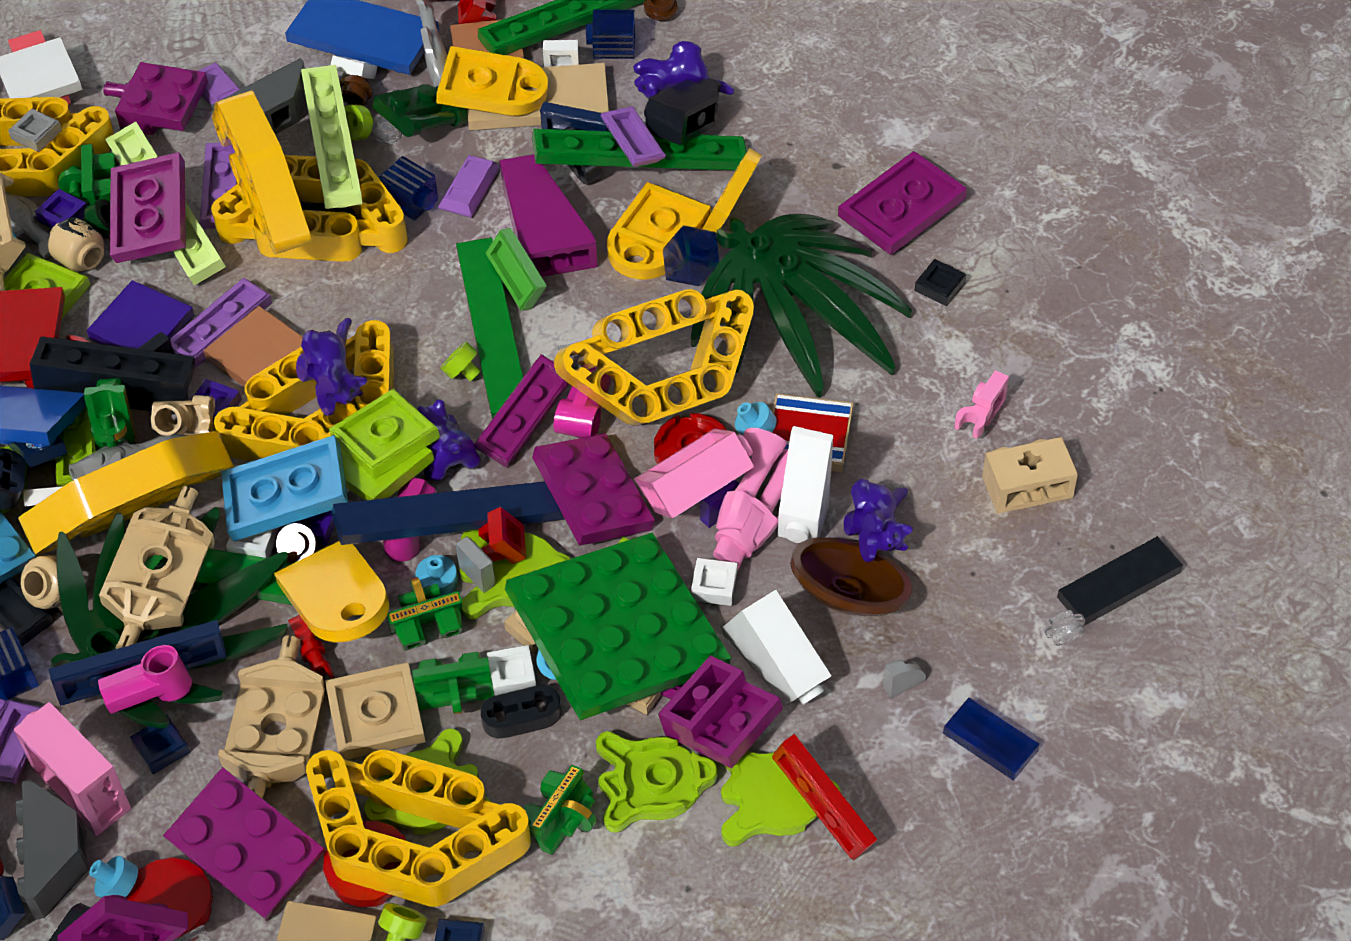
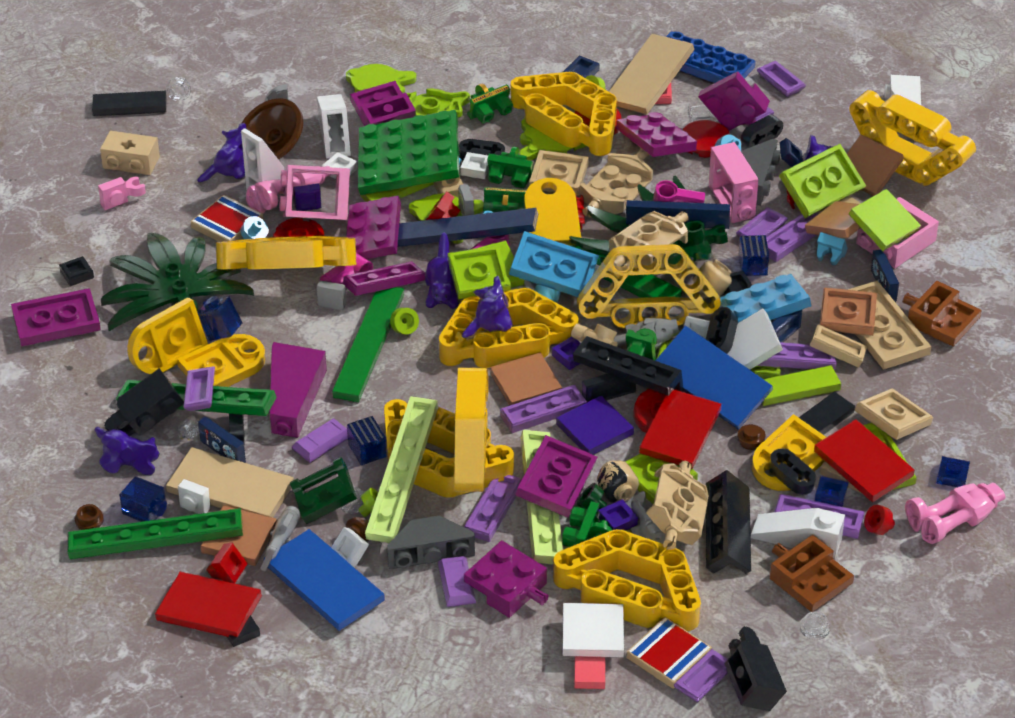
camera: 155 degrees left, 10 degrees down
(35, 130) = (614, 557): light grey tile -> none
(491, 82) = (262, 486): yellow tile -> none
(516, 269) = (334, 352): bright green tile -> none
(823, 797) = (361, 56): red tile -> none
(991, 738) = (255, 69): clear blue tile -> none

